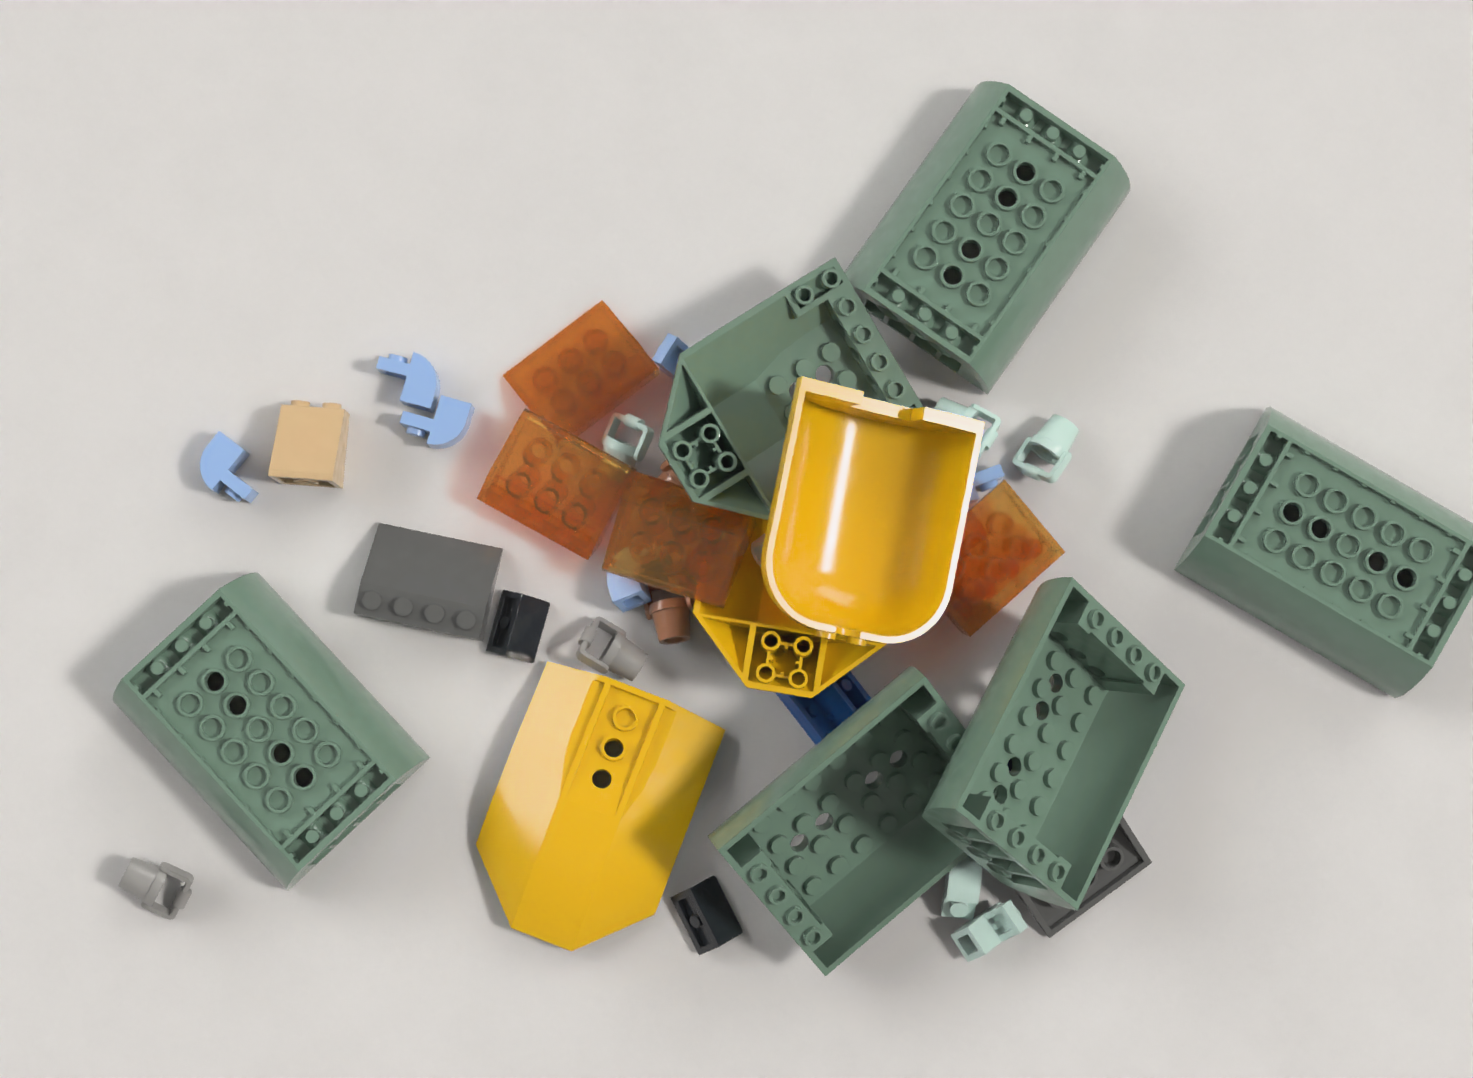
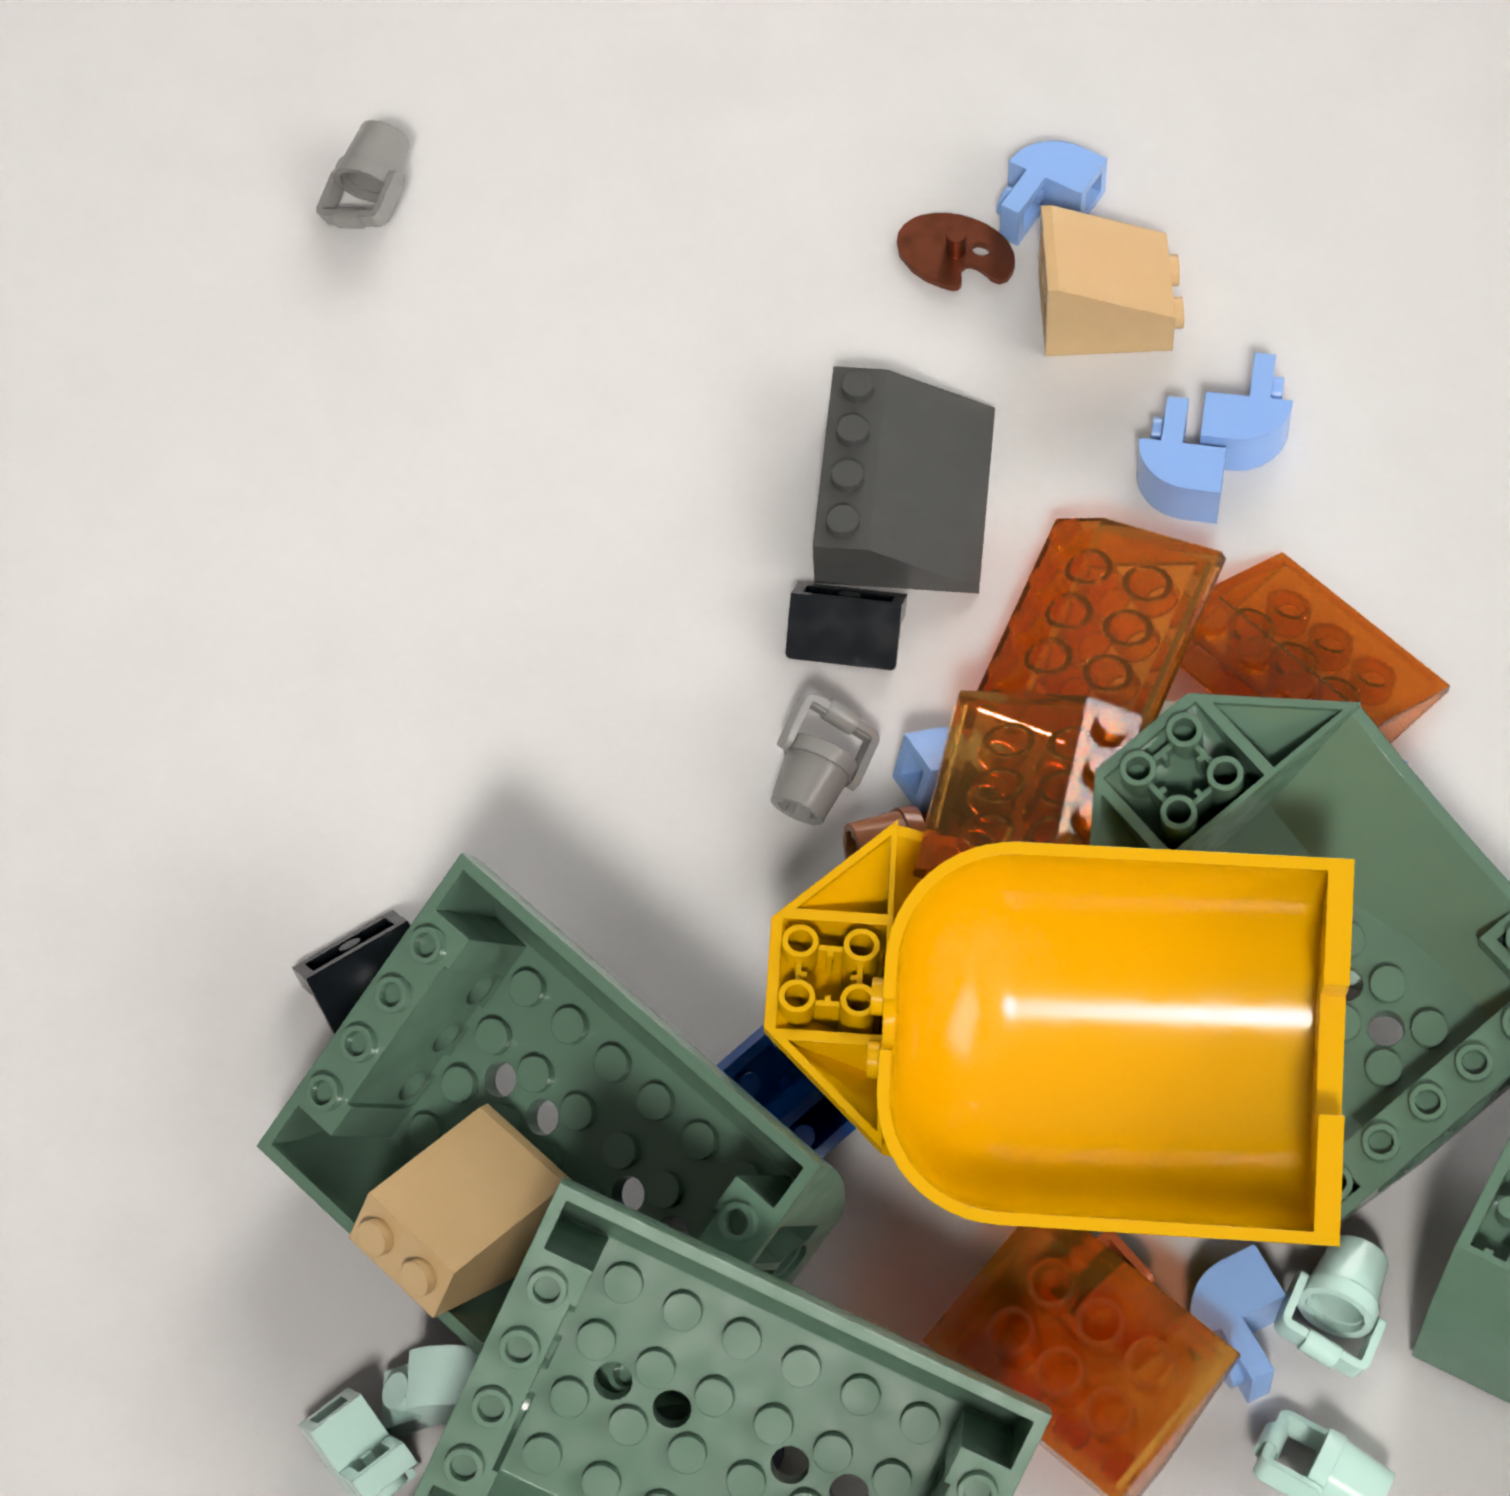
camera: 90 degrees right, 25 degrees down
(256, 540) = (941, 247): none -> copper piece
(293, 697) = (685, 296): sand green slope -> none
(581, 856) = (465, 747): yellow wedge -> none
(882, 868) = (459, 1212): none -> tan slope

